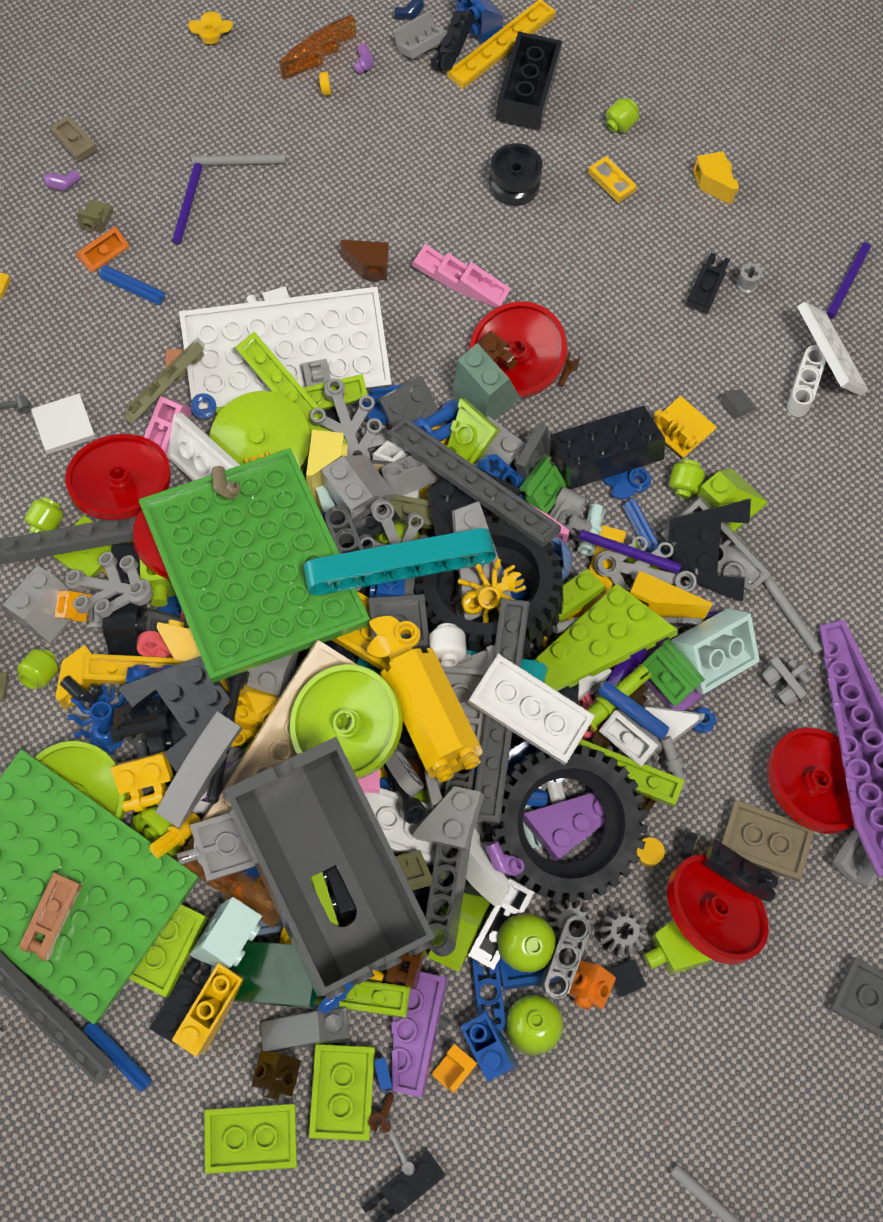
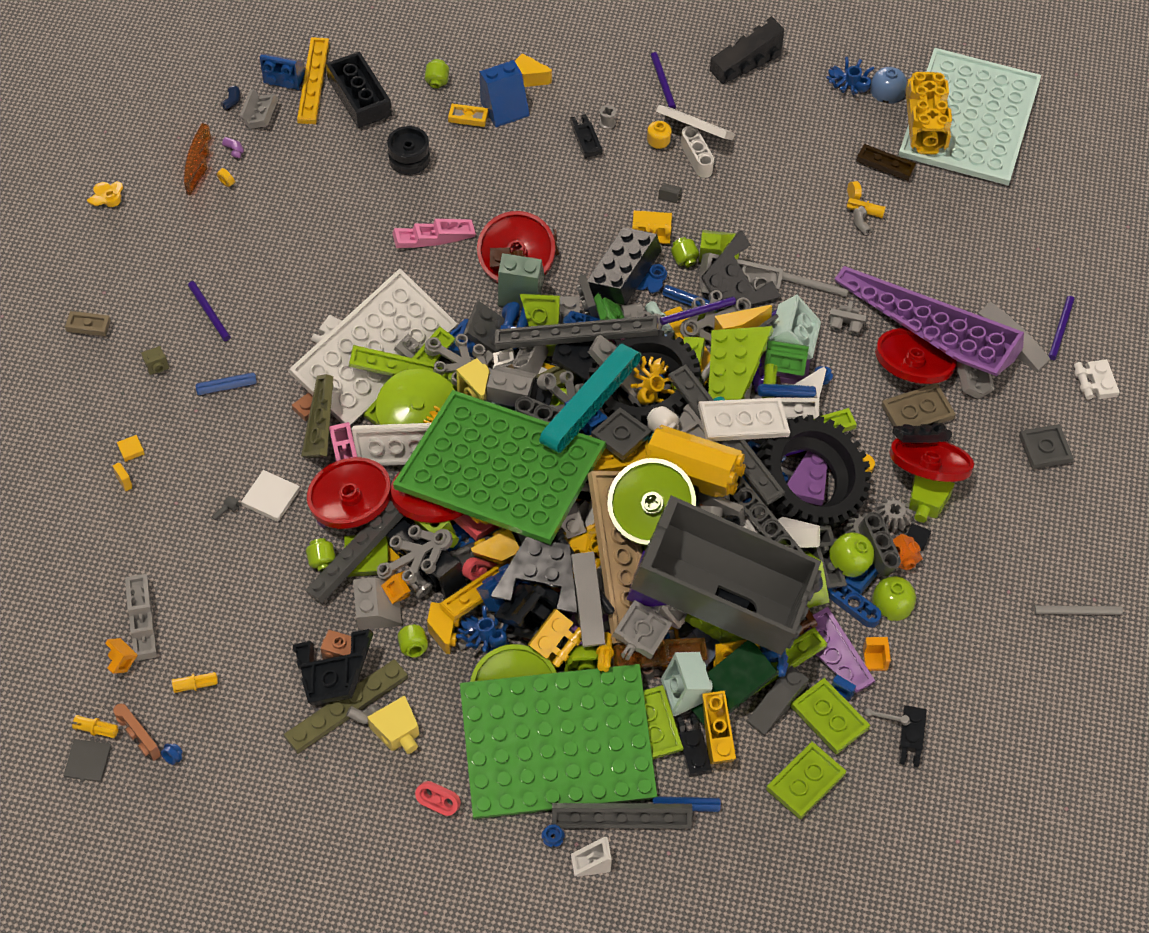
camera: 40 degrees left, 10 degrees down
(50, 916) = (576, 754): nougat plate -> none
(61, 182) = (107, 356): medium lavender arm -> none
(80, 693) = (458, 628): black arm -> none
(102, 249) = (181, 377): orange slope -> none
(206, 398) = (355, 411): blue plate -> none
(223, 487) = (438, 438): dark tan arm -> none
(239, 159) = (215, 261): light grey bar -> none
(276, 1074) = (786, 734): dark brown brick -> none
(366, 258) = (365, 262): reddish brown slope -> none
(382, 1117) = (863, 707): reddish brown hand -> none
(389, 640) = (629, 442): yellow plate -> none
(452, 819) = (759, 509): light grey wing -> none
(453, 40) = (285, 96): black hinge -> none
(489, 1047) = (885, 624): blue slope -> none
(502, 862) = (804, 516): medium lavender arm -> none
(662, 180) = (503, 93): none -> blue slope
(673, 762) = (830, 405): light grey bar -> none
(689, 845) = (882, 443): black tile -> none
(783, 334) = (659, 134): none -> yellow head

